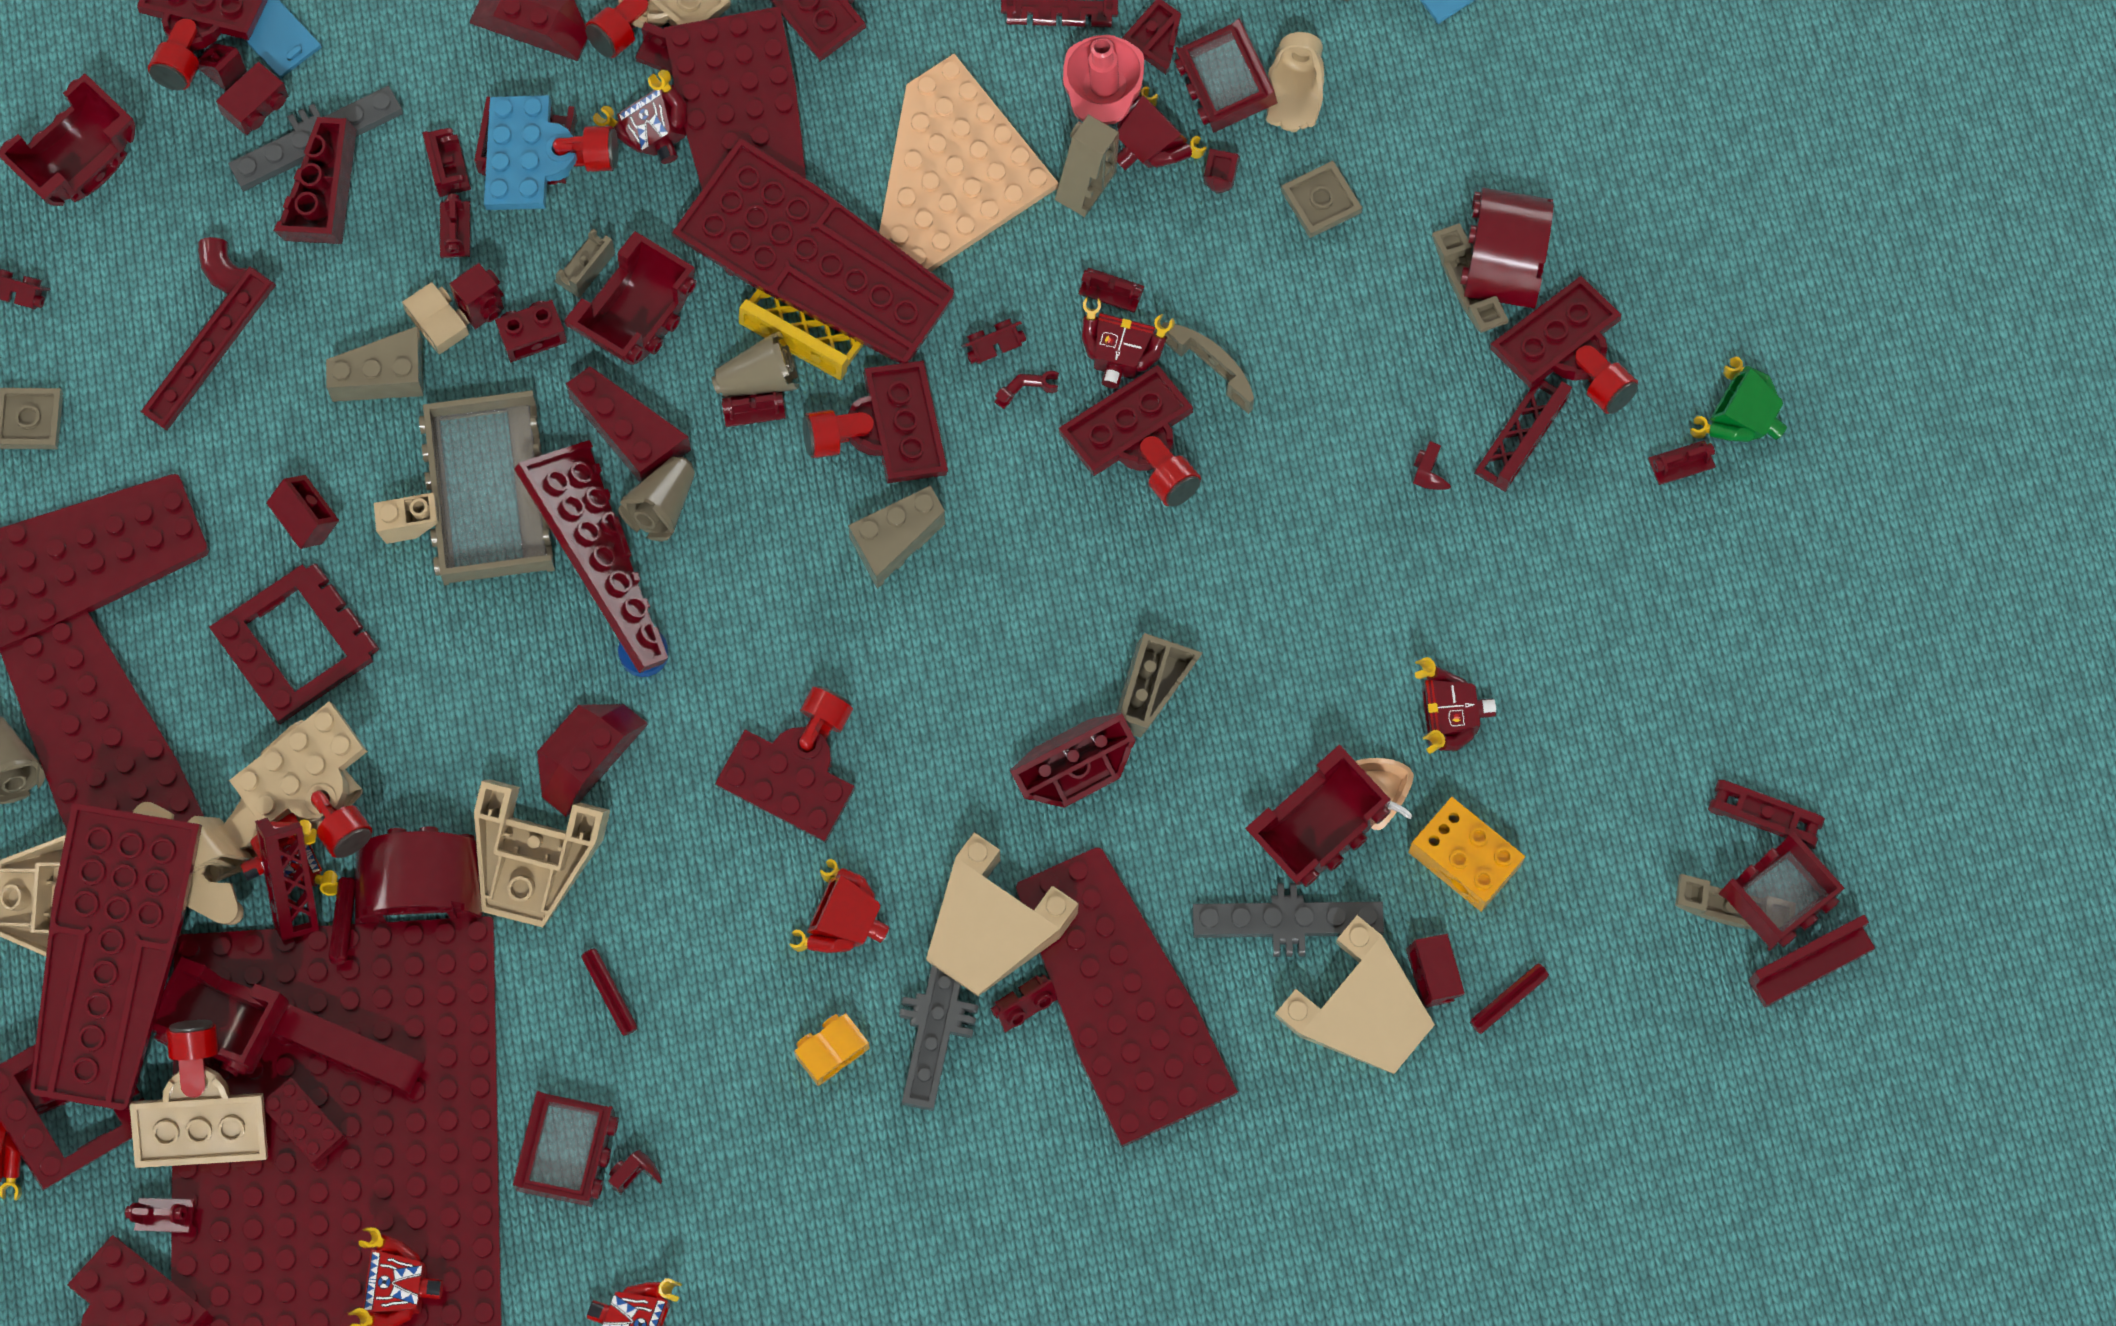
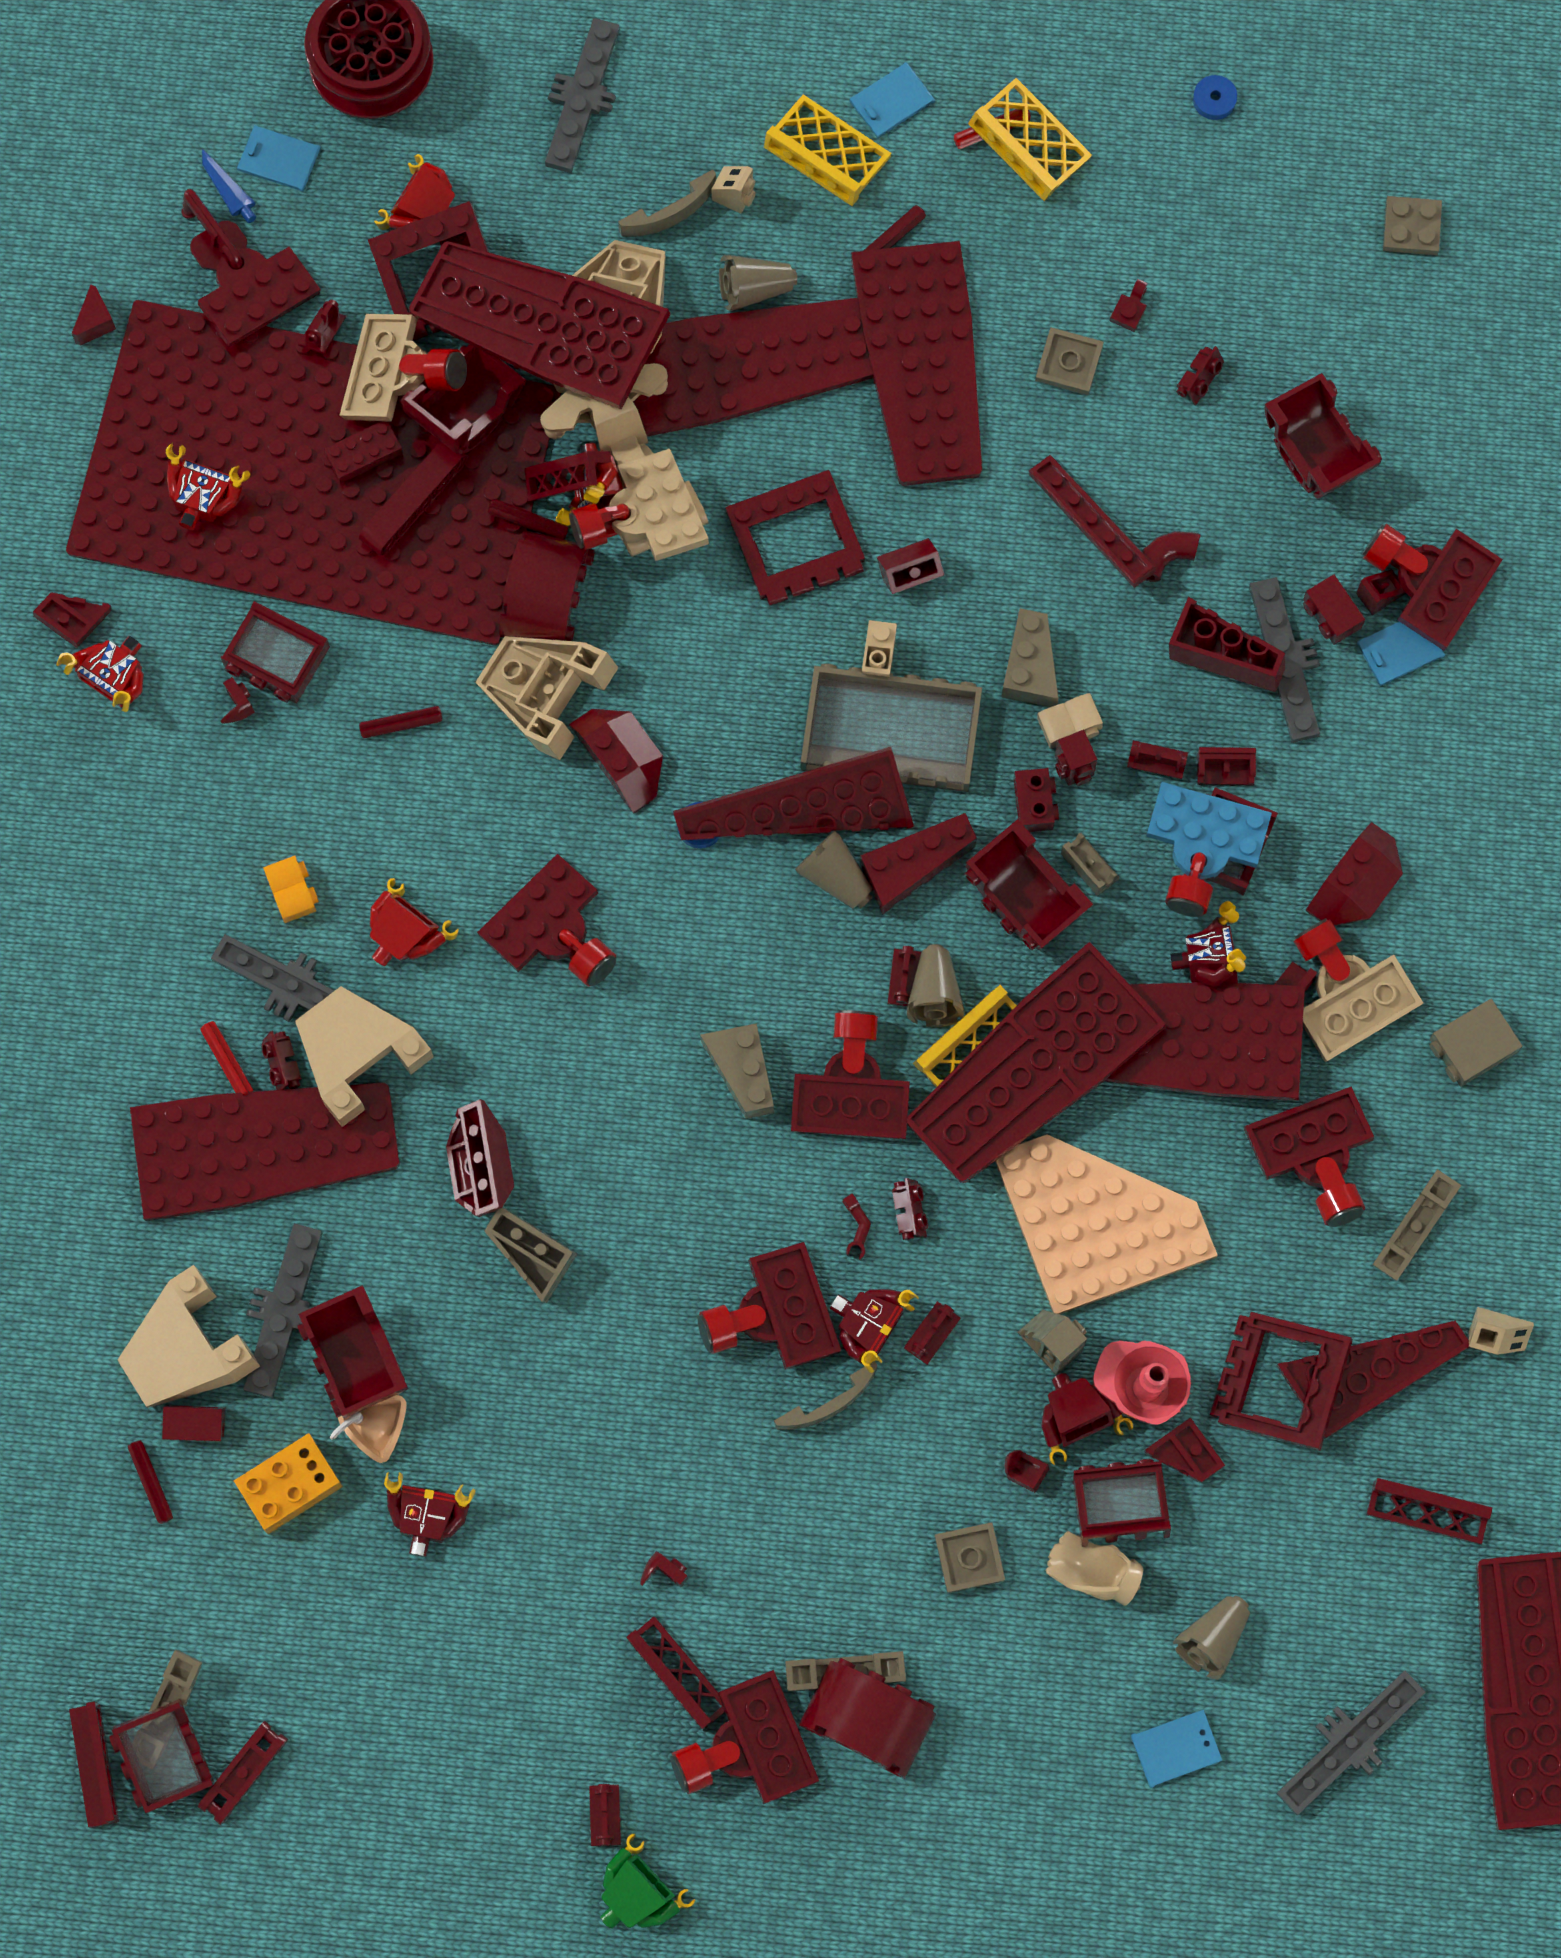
camera: 110 degrees right, 5 degrees up
(1037, 1061) = (226, 1058): none -> red axle

